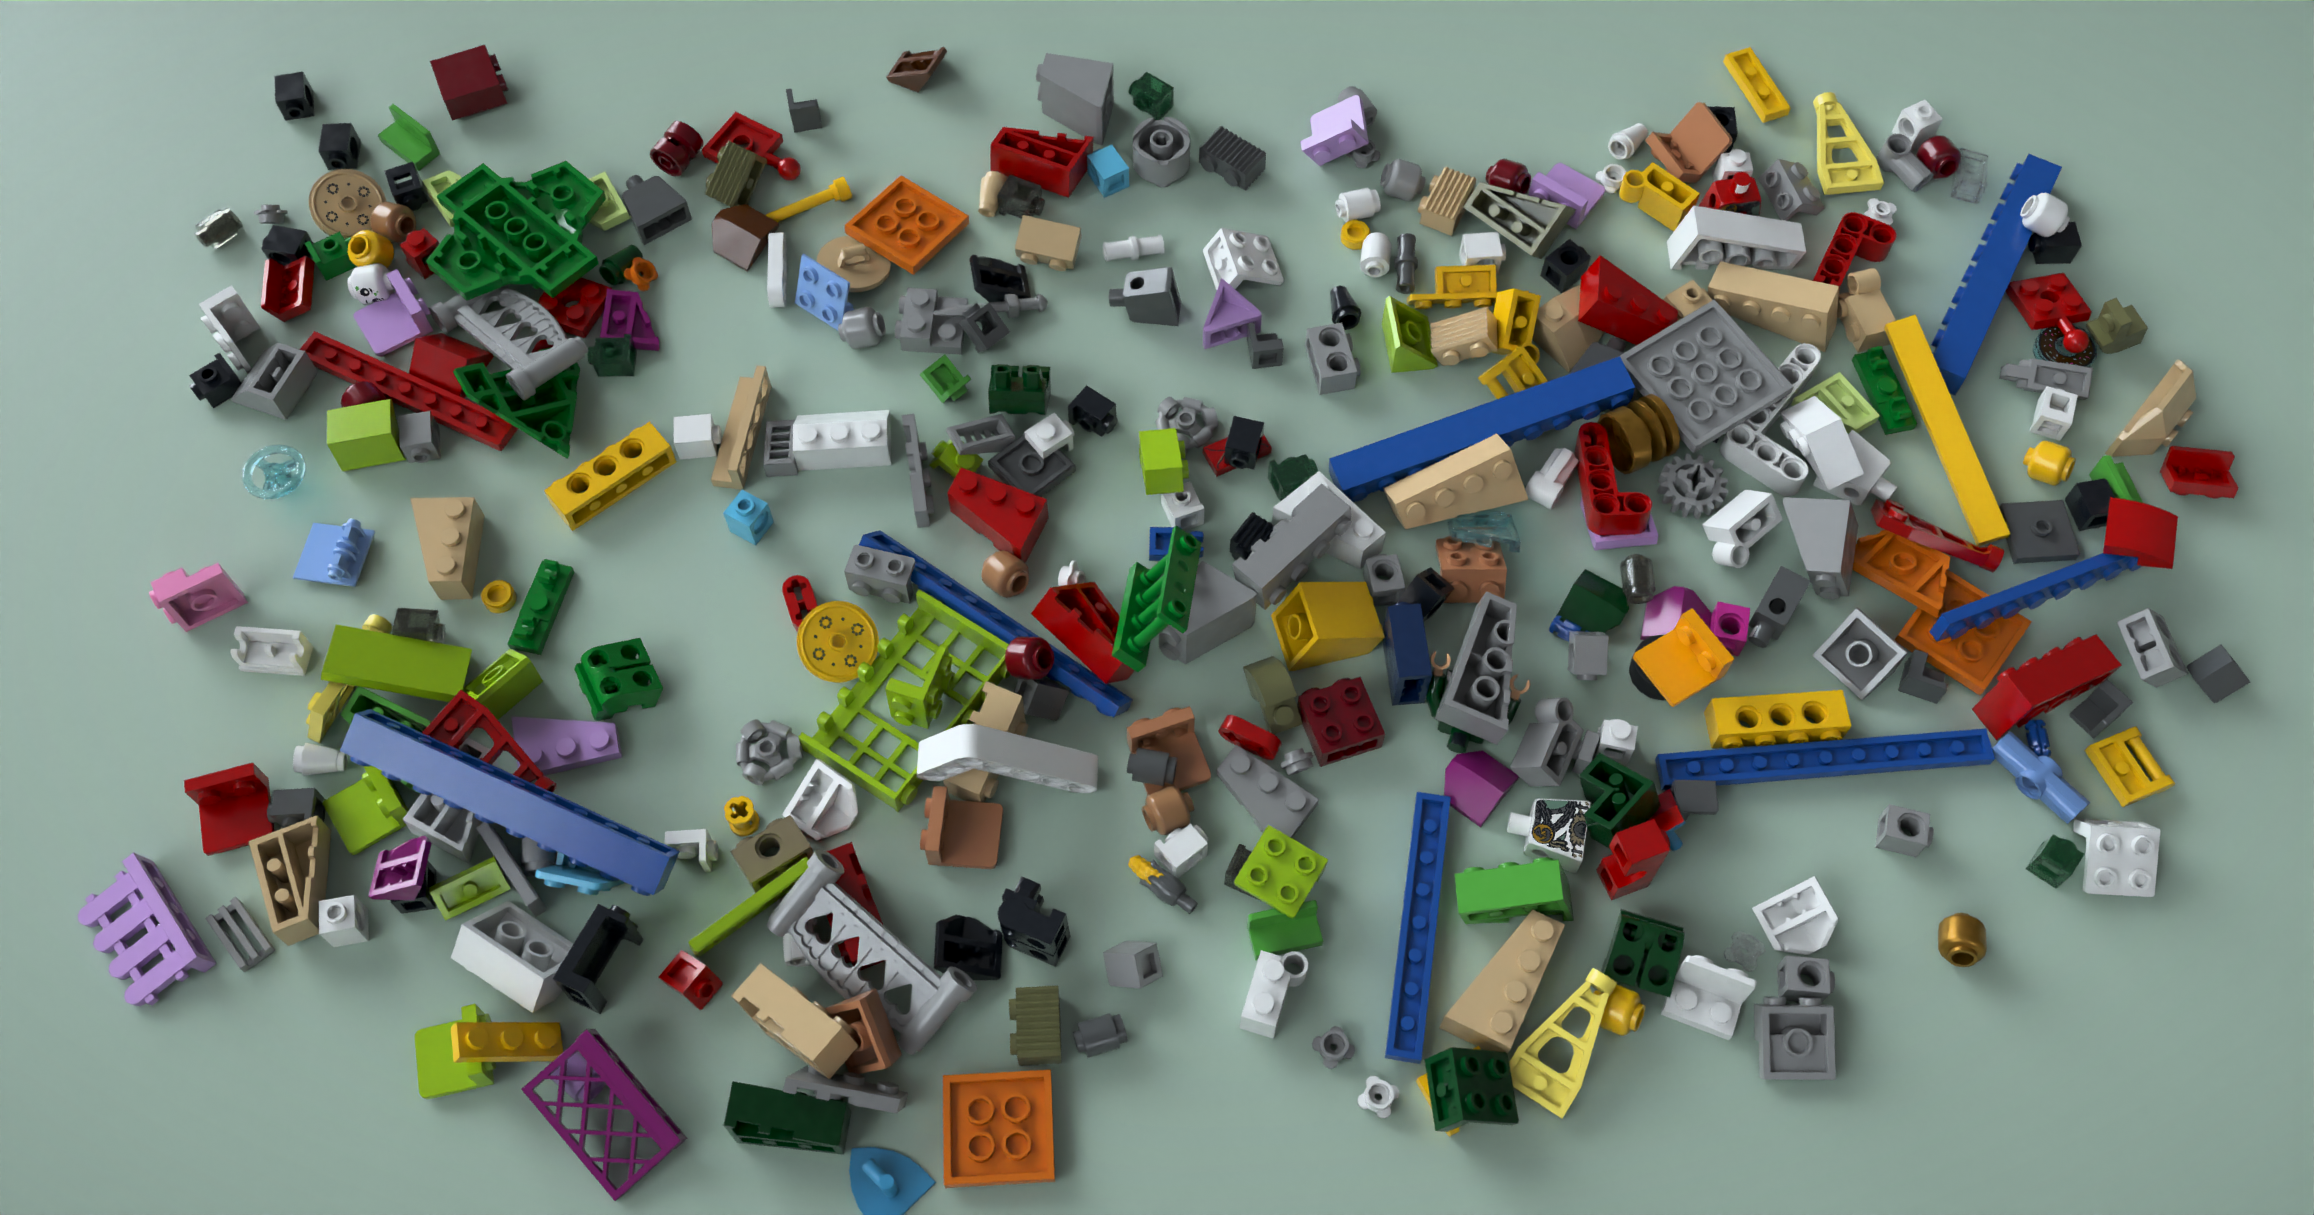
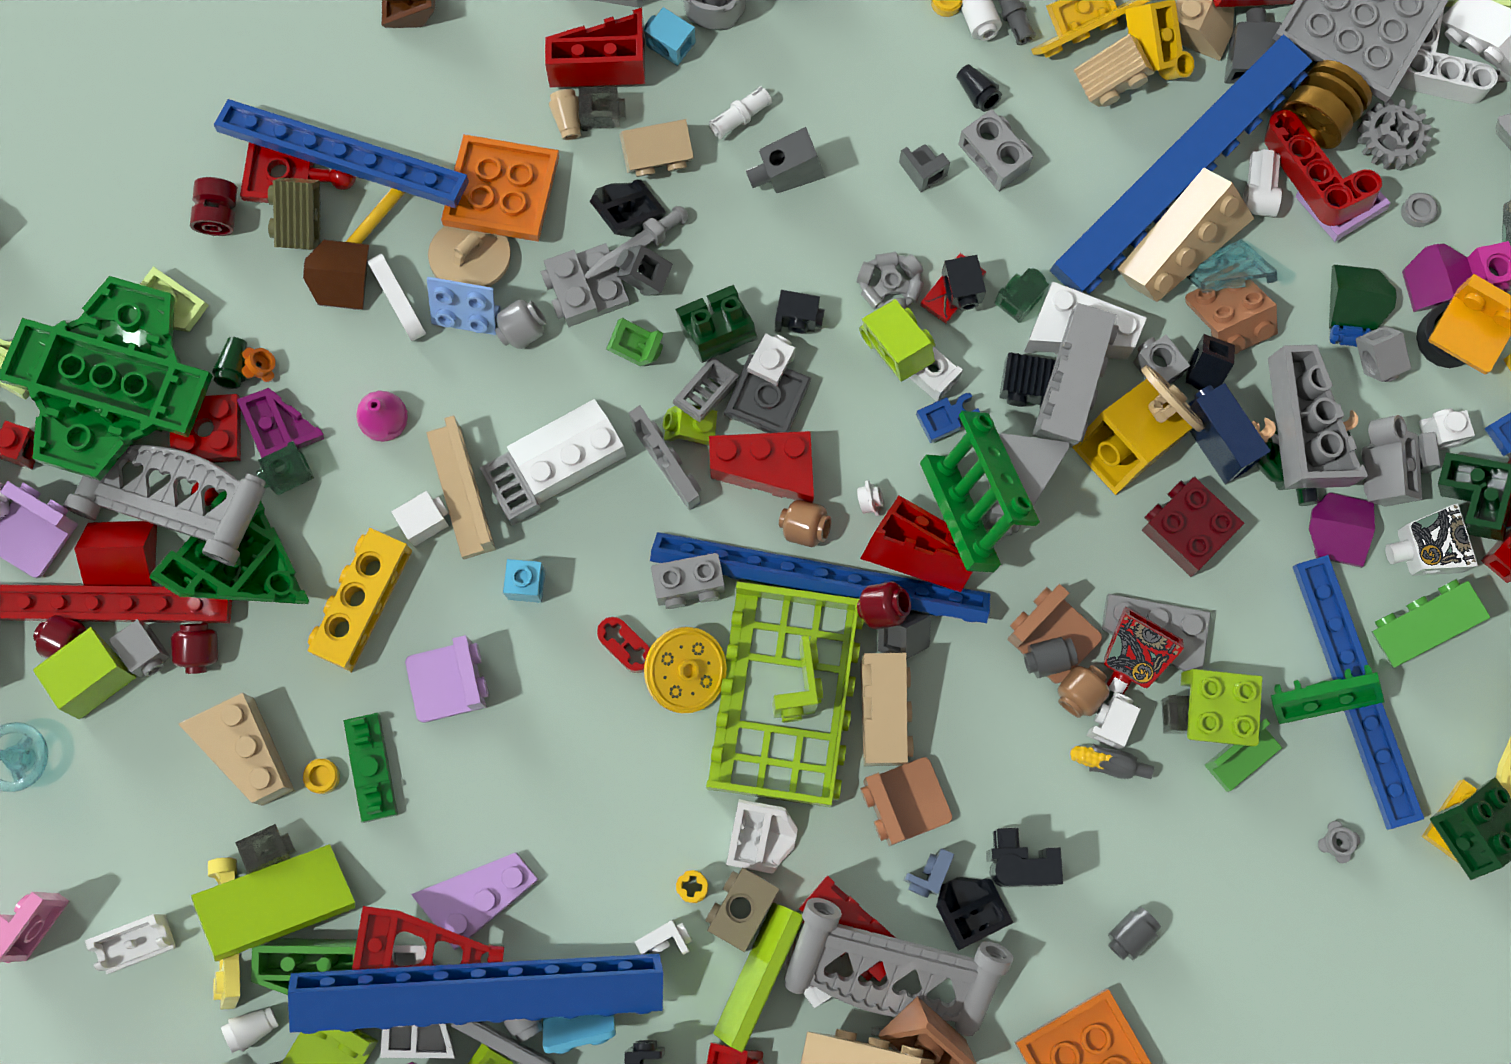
camera: 25 degrees left, 15 degrees up
(334, 553) = (128, 811): light blue hinge -> none
(461, 454) = (194, 647): none -> dark red head
(504, 683) = (379, 866): lime slope -> none
(616, 679) = (495, 811): green hips -> none
(642, 566) = (447, 680): none -> lavender bracket
(654, 207) = (227, 283): dark grey torso -> none
(713, 350) = (381, 416): none -> dark pink helmet
(766, 750) = (677, 809): light grey piece -> none
(796, 148) = (341, 153): none -> blue plate
(804, 114) = (321, 105): dark grey panel -> none
(955, 901) = (936, 869): none -> sand blue bracket
(1007, 755) = (917, 722): white beam -> none
(1037, 1025) = (1073, 953): olive brick -> none
(1133, 964) = (1127, 853): light grey panel -> none
(1229, 317) = (878, 149): lavender slope -> none
(1233, 797) = (1139, 651): none -> torso
(1241, 257) = (853, 80): white bracket -> none
(1250, 737) = (1118, 581): red beam -> none
(1269, 991) = (1262, 820): white hinge -> none
(1275, 692) = (1120, 525): olive brick -> none
(1297, 761) = (1173, 585): light grey plate -> none
(1366, 597) = (1173, 396): none -> tan shield
(1376, 1086) = (1410, 868): white plate -> none
(1383, 911) = (1327, 696): none -> green plate
(1407, 338) = (1055, 95): lime slope -> none
(1501, 994) = (1465, 712): tan wedge -> none
(1517, 369) = (1189, 90): yellow plate -> none
(1637, 579) = (1389, 254): clear smoke brick -> none
(1686, 557) = (1419, 209): none -> light grey tile
(1740, 526) = (1459, 157): white hinge -> none

